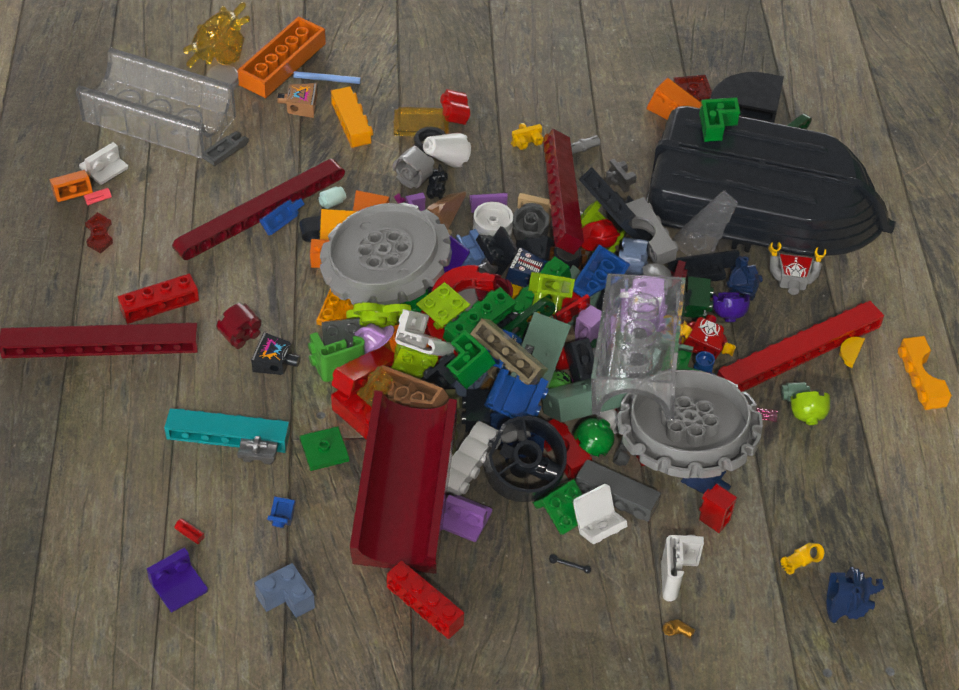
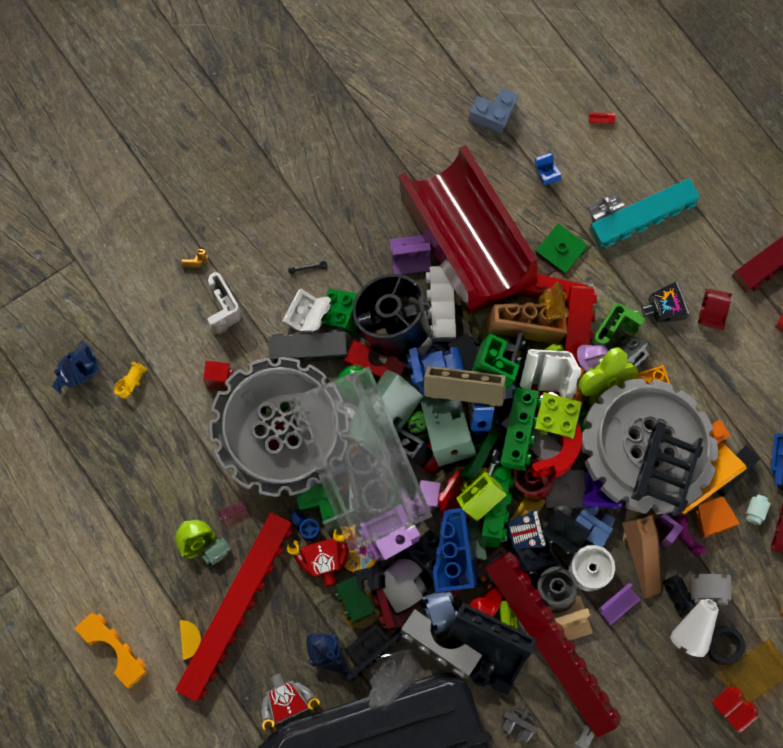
camera: 145 degrees right, 25 degrees up
(176, 580) = (574, 72): dark purple bracket -> none
(400, 225) = (647, 470): none -> black fence
(425, 599) = (391, 164): red brick -> none
(526, 135) = (645, 709): yellow hips -> none
(730, 305) = (322, 613): dark purple cylinder -> none

